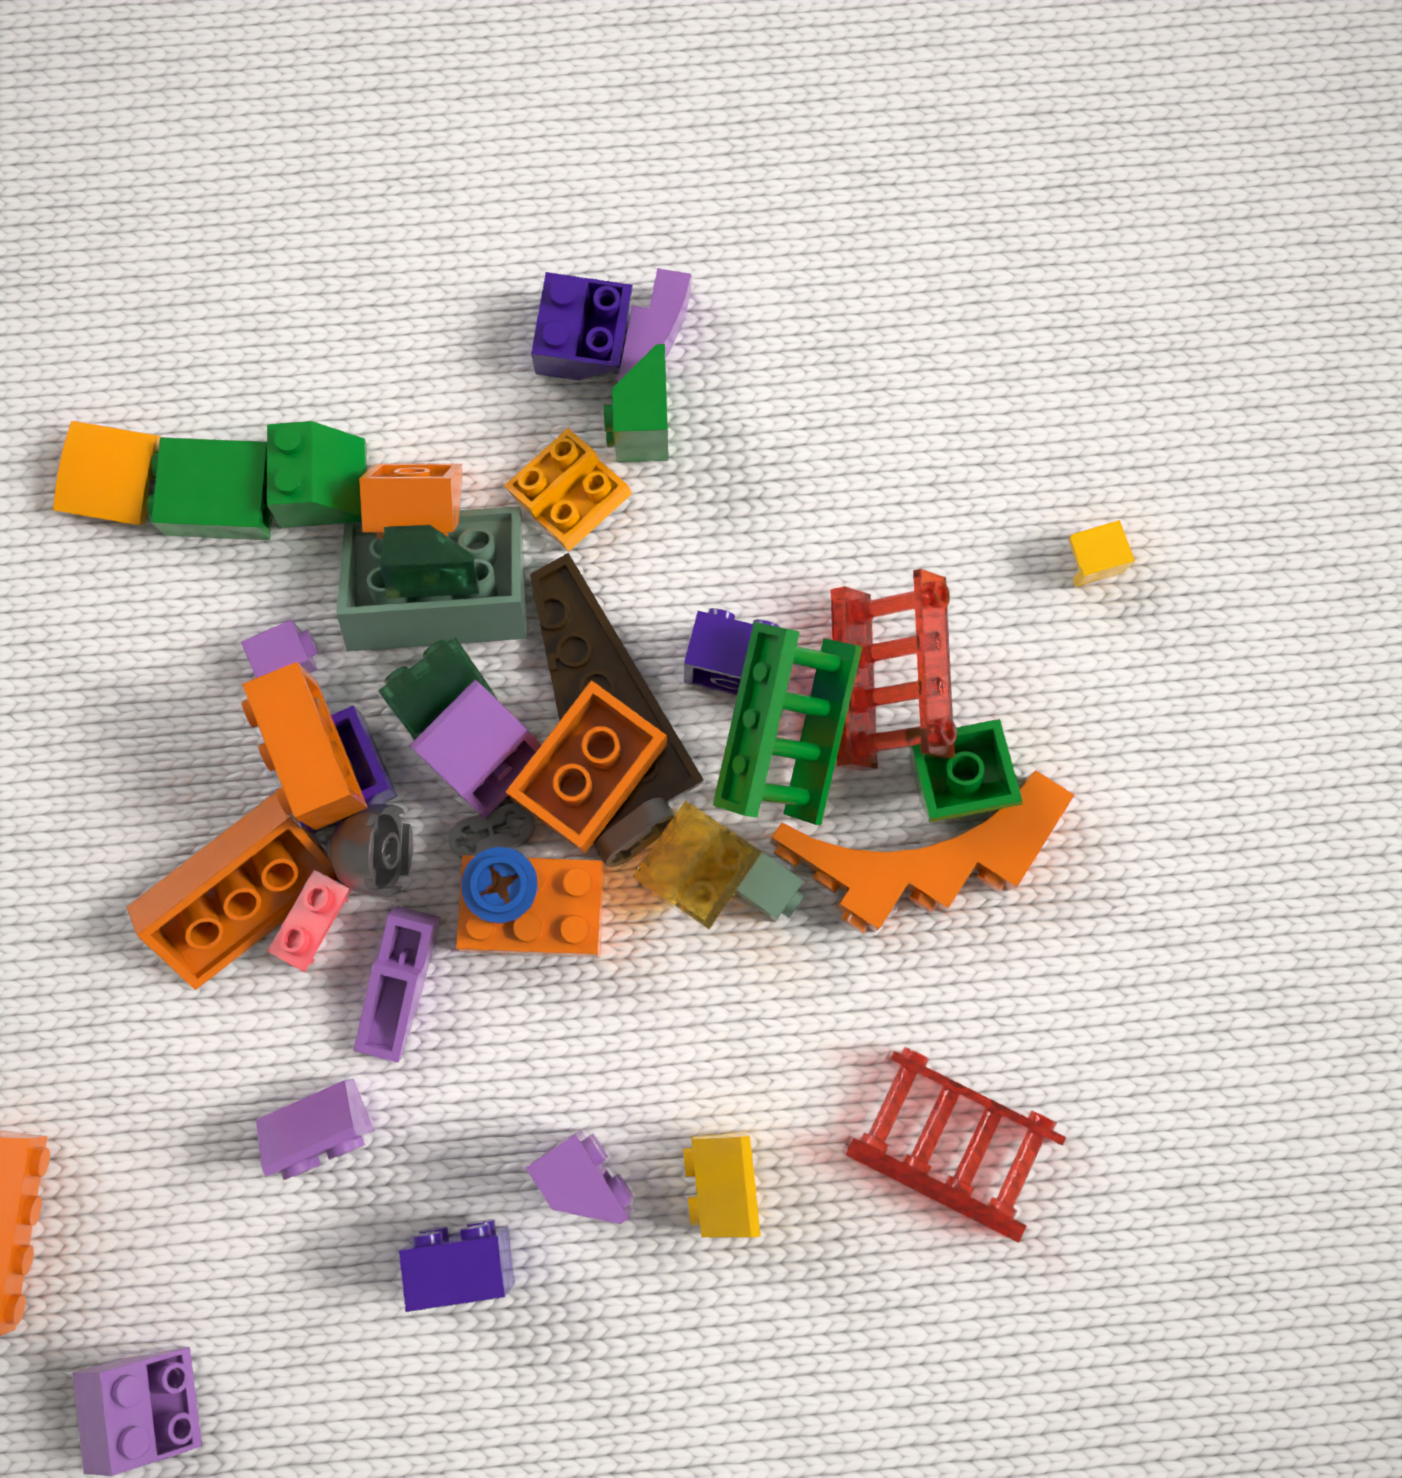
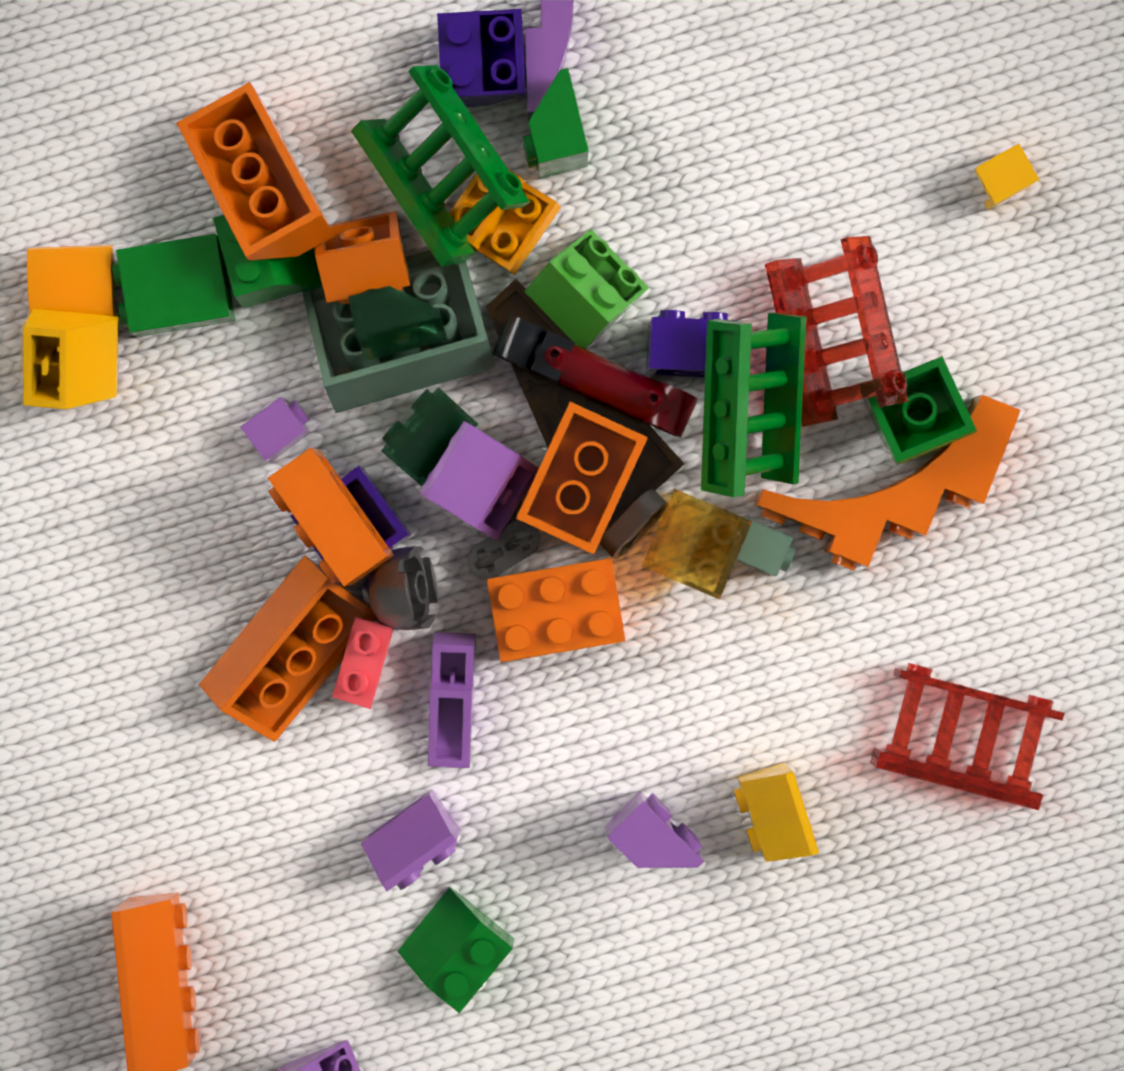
camera: 10 degrees left, 10 degrees up
(81, 536) = (69, 359): none -> yellow slope
(320, 392) = (254, 177): none -> orange slope
(333, 1266) = (455, 949): none -> green slope
(456, 1267) = (563, 928): dark purple brick -> none
(476, 422) = (404, 173): none -> green fence
(478, 878) = (526, 621): blue gear -> none
(596, 645) = (594, 376): none -> dark red piece
(638, 578) = (586, 289): none -> bright green slope

